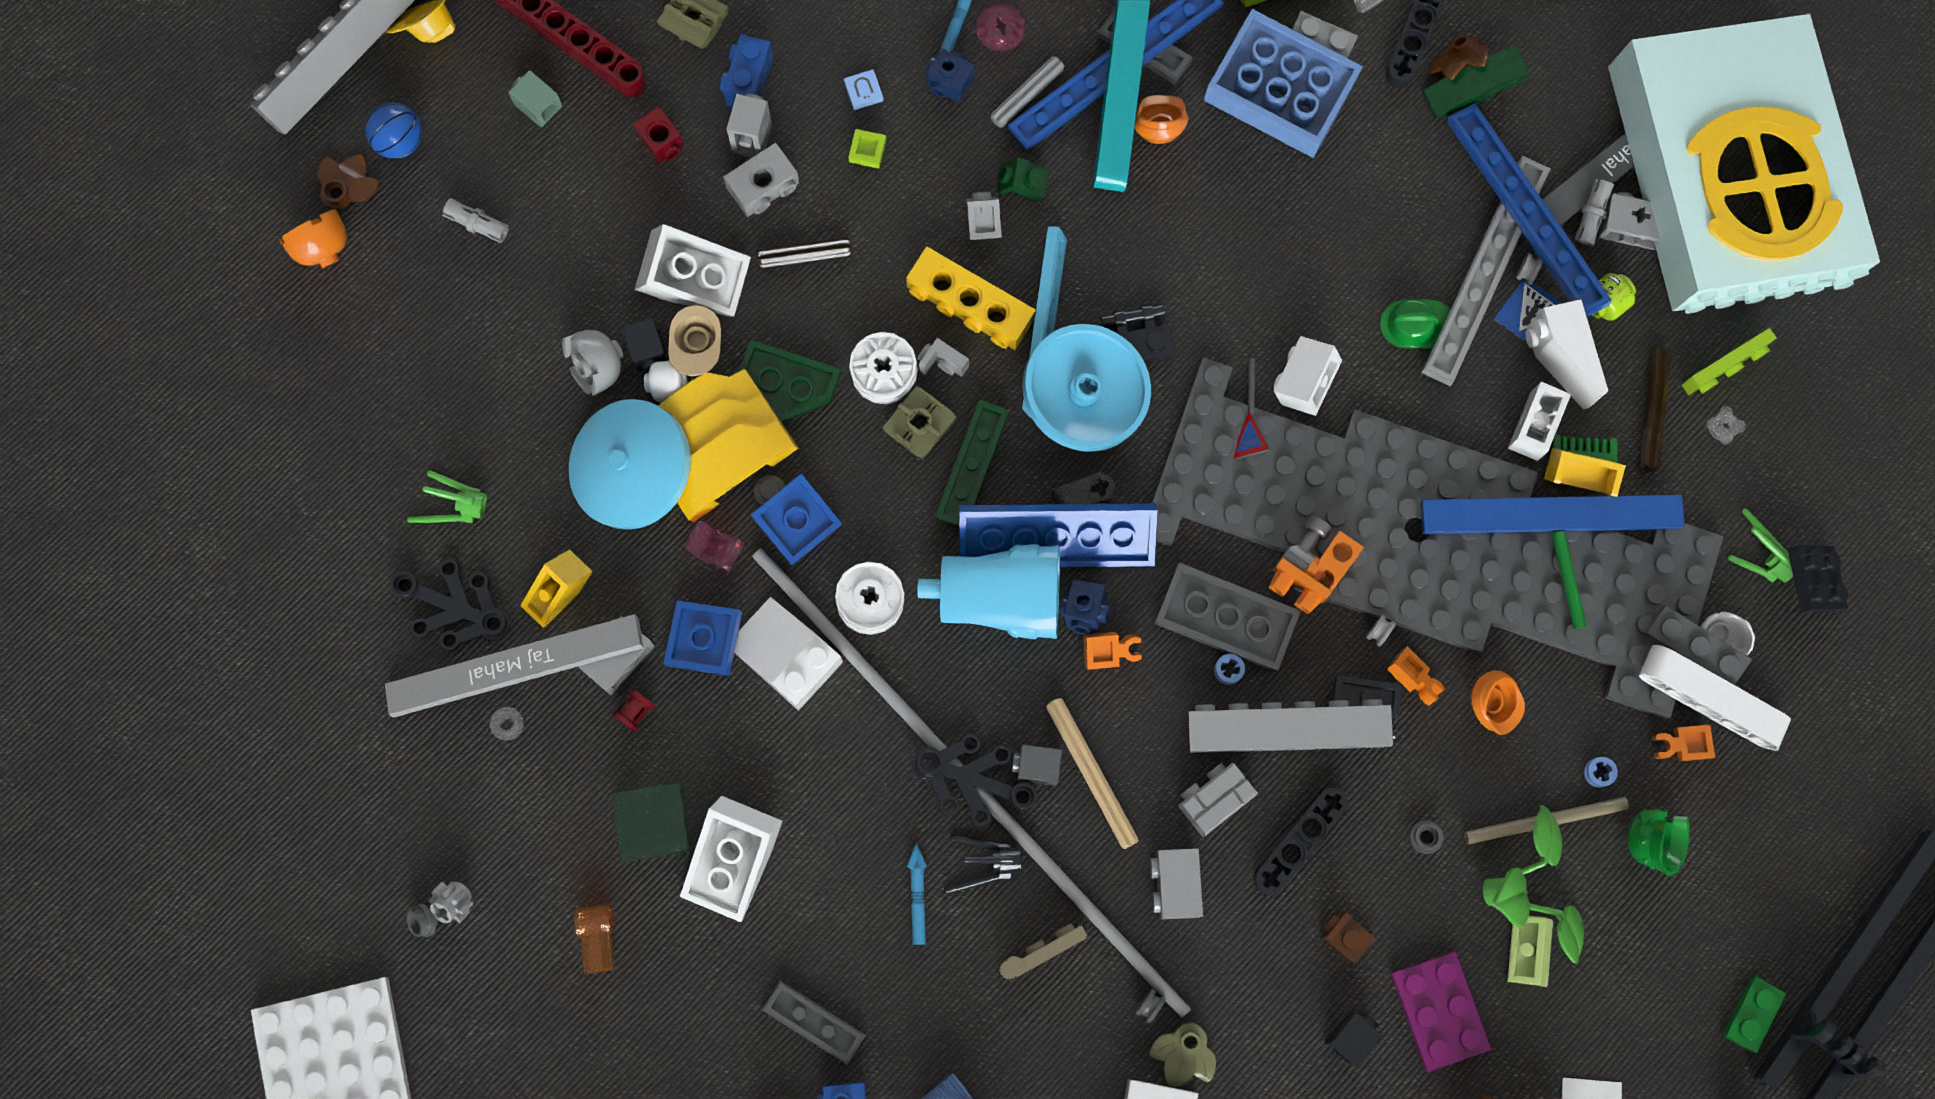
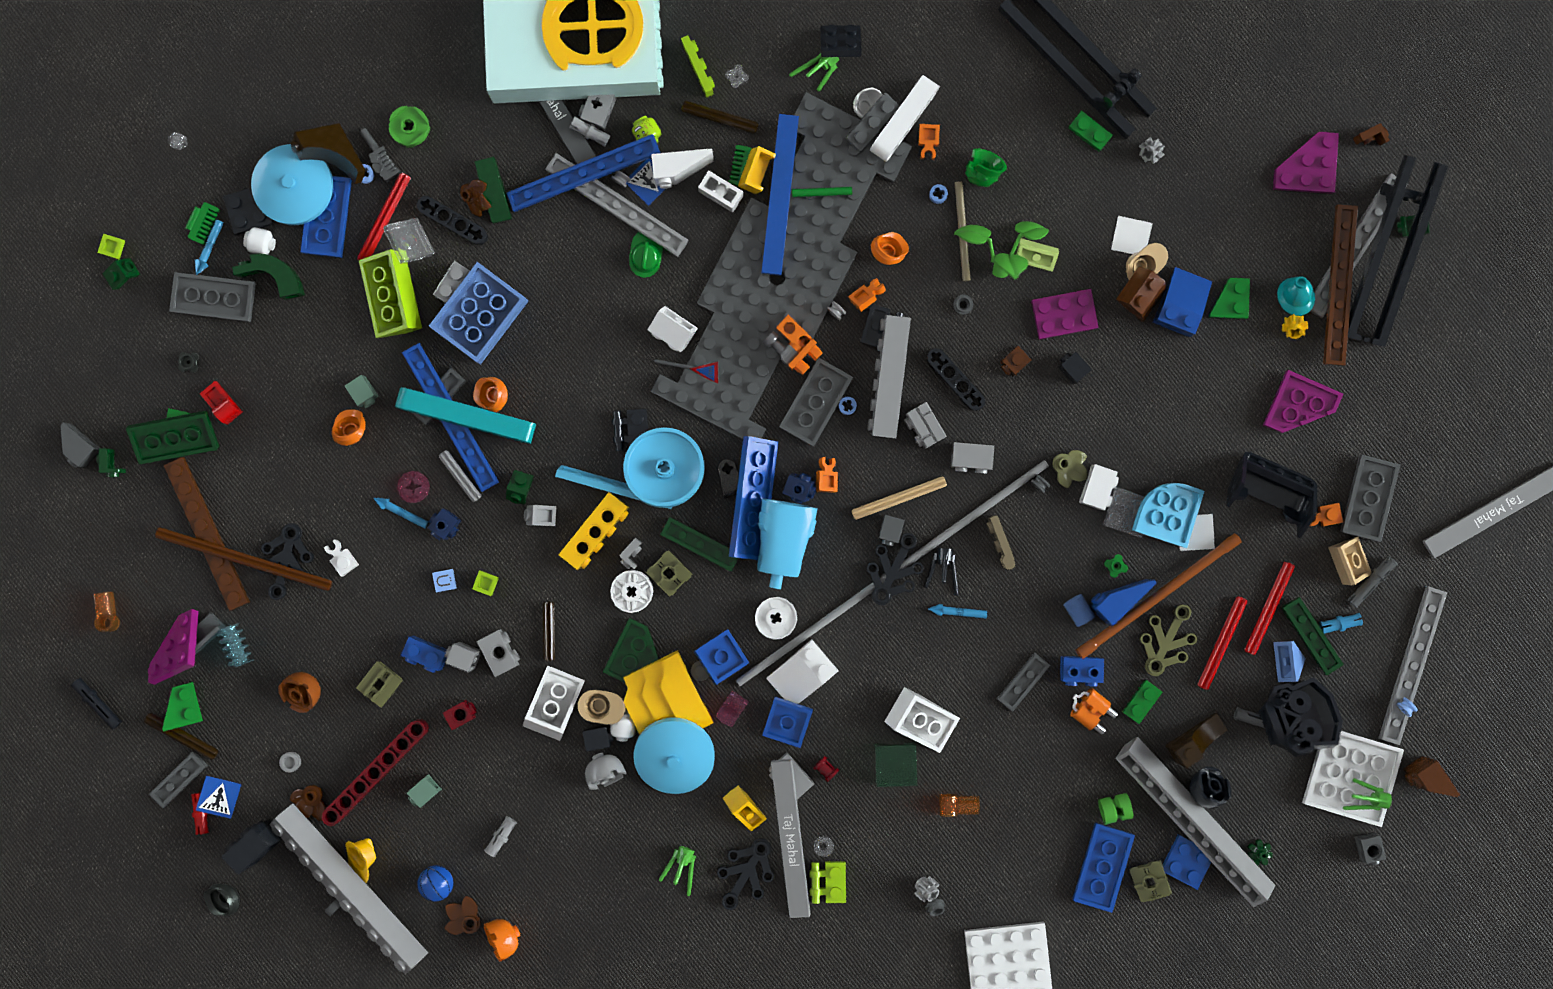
camera: 80 degrees left, 10 degrees up
(450, 750) = (834, 879): none -> lime plate

